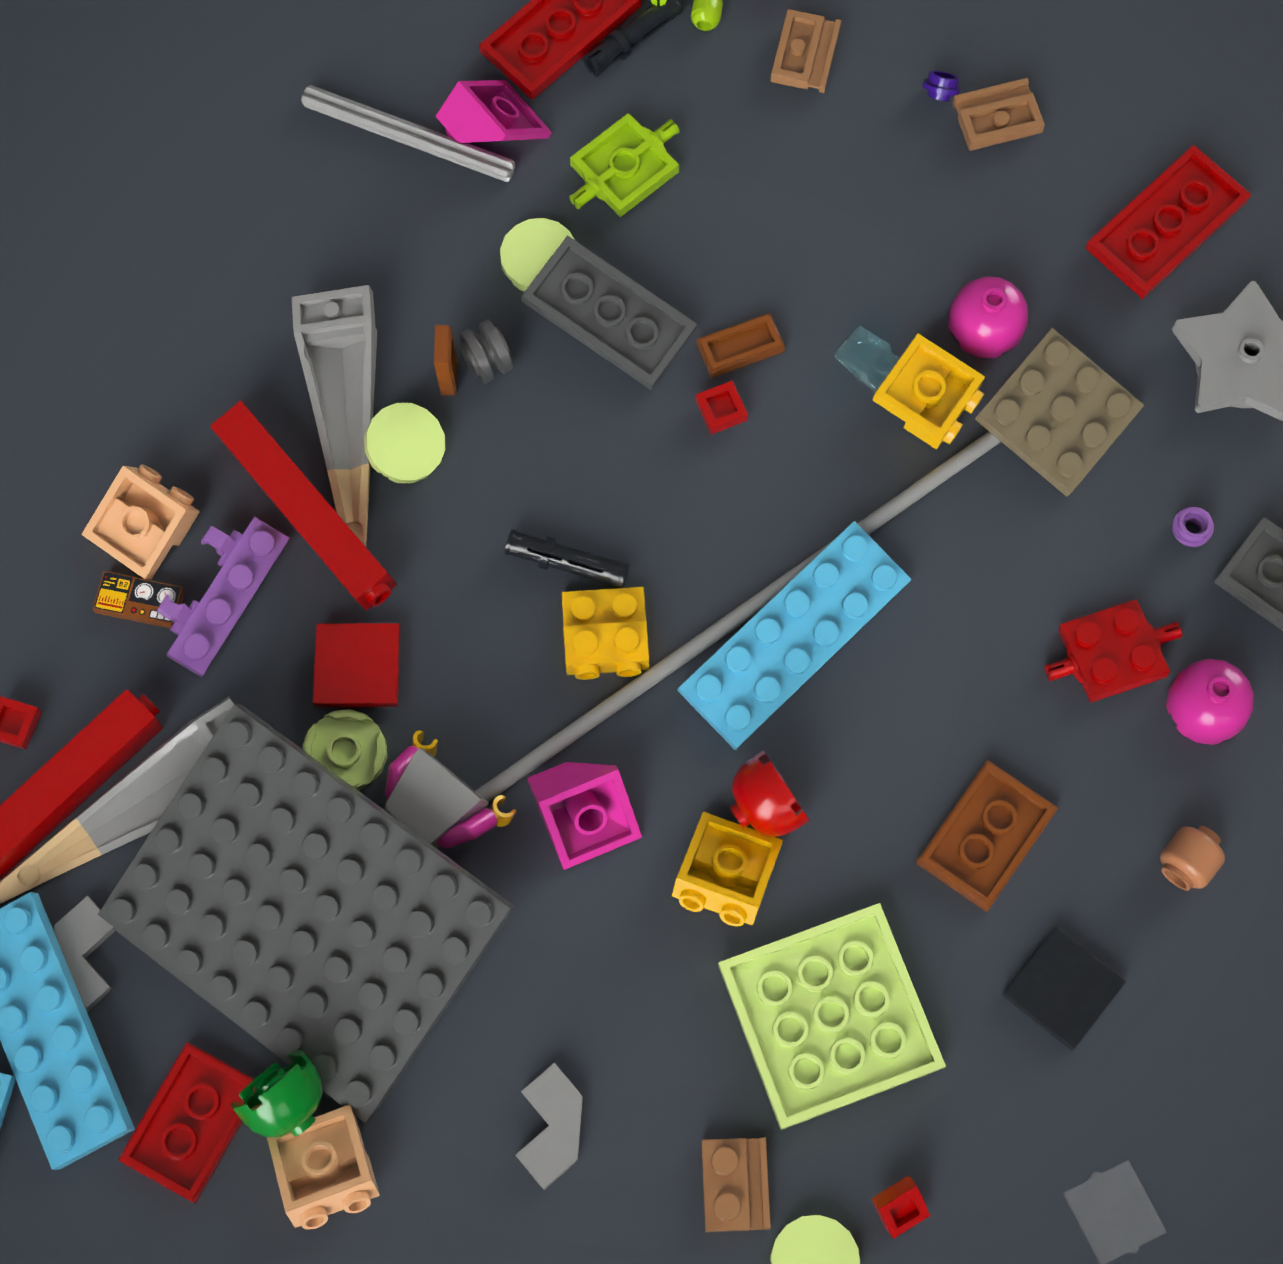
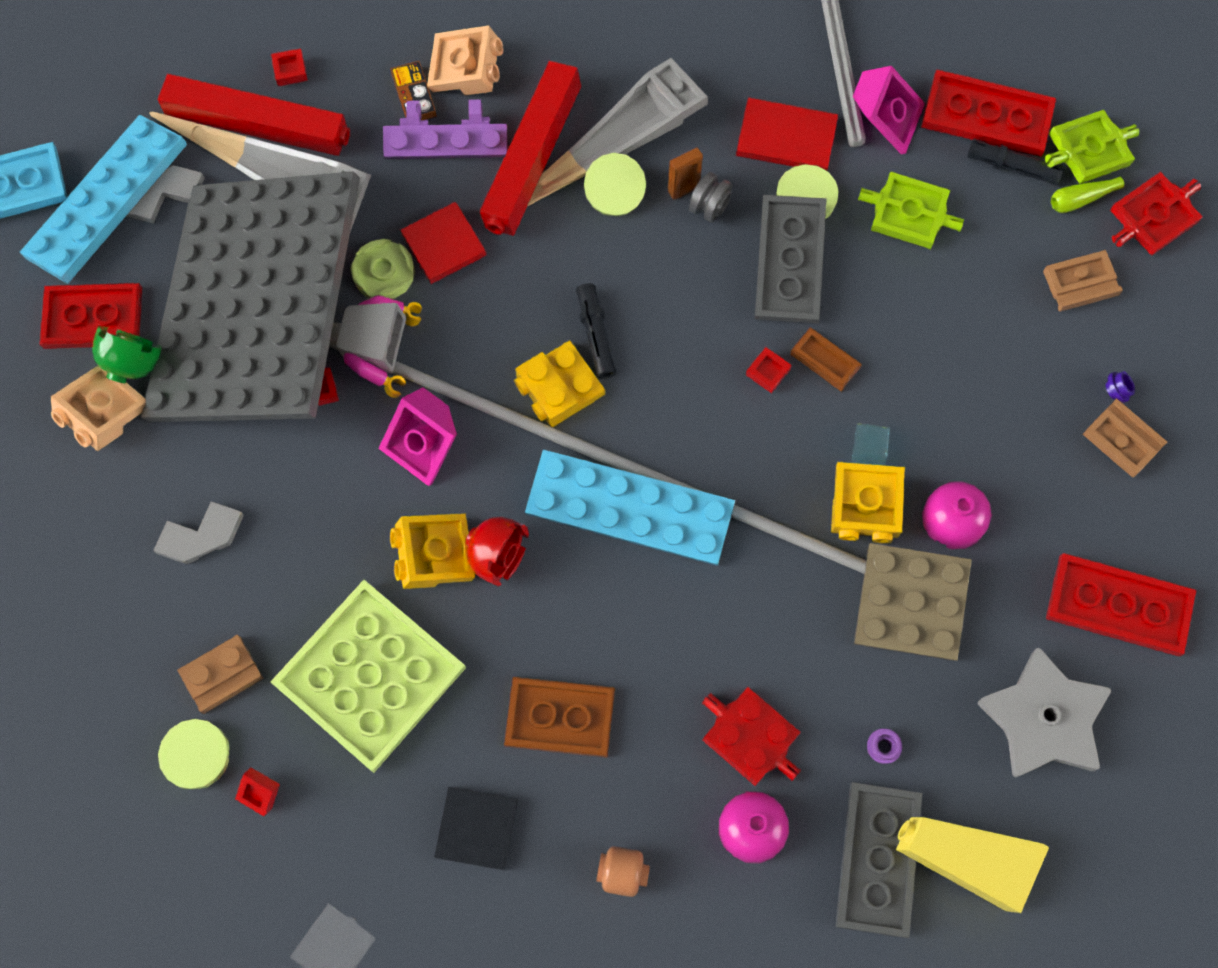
camera: 60 degrees right, 0 degrees up
(454, 235) = (786, 134): none -> red tile

